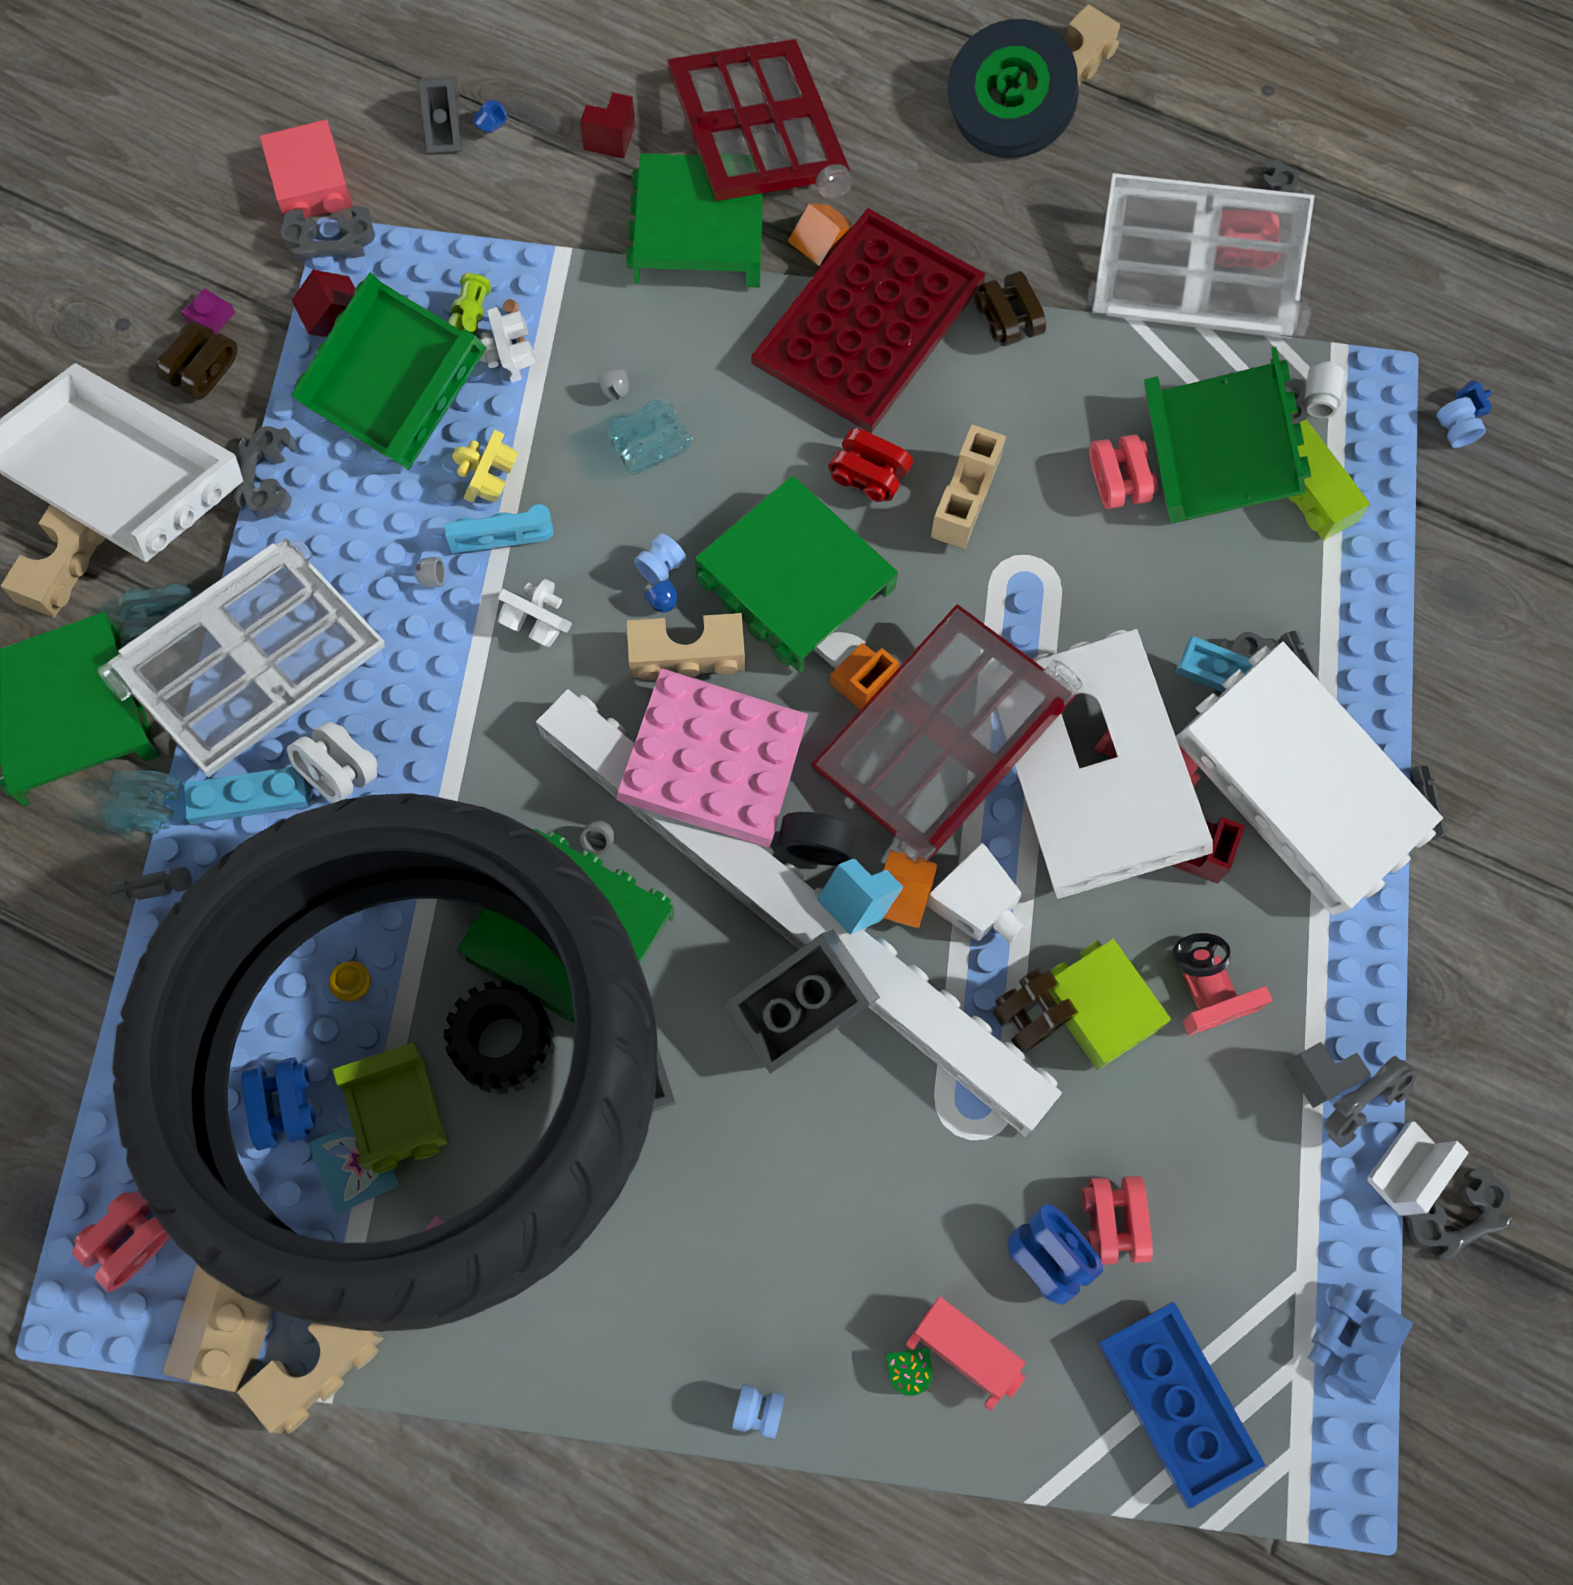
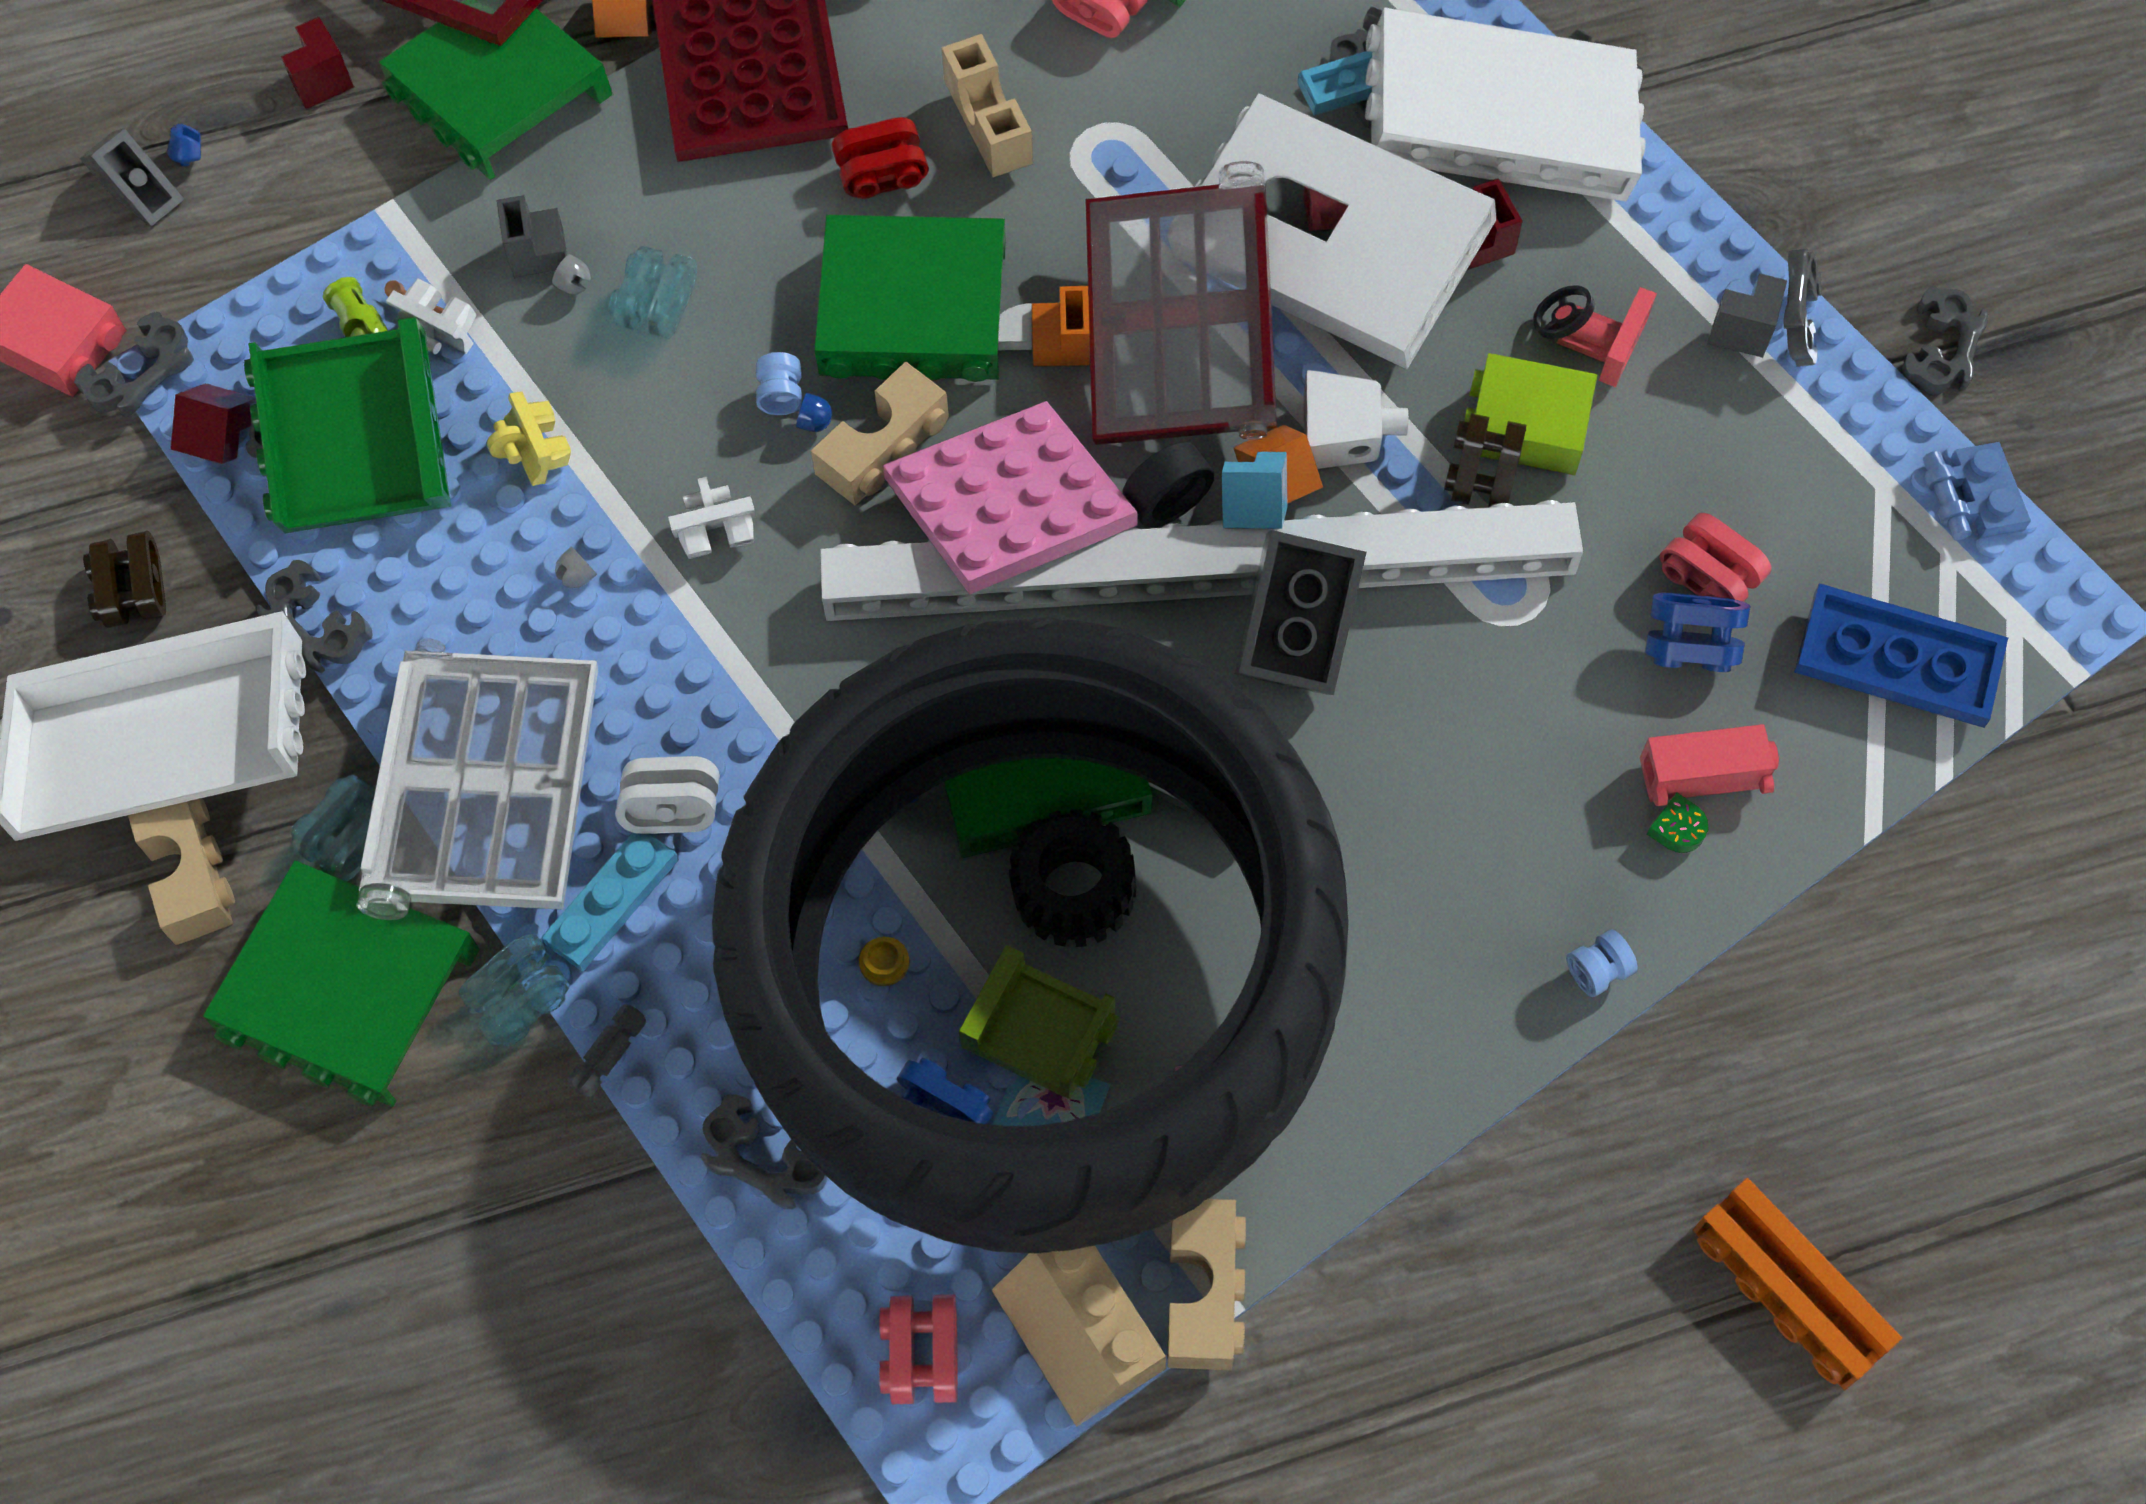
camera: 40 degrees left, 5 degrees down
(209, 310) = (81, 529): magenta plate -> none
(500, 530) = (602, 479): medium azure plate -> none
(613, 340) = (531, 240): none -> dark grey piece
(1415, 1170) = (1887, 335): white panel -> none

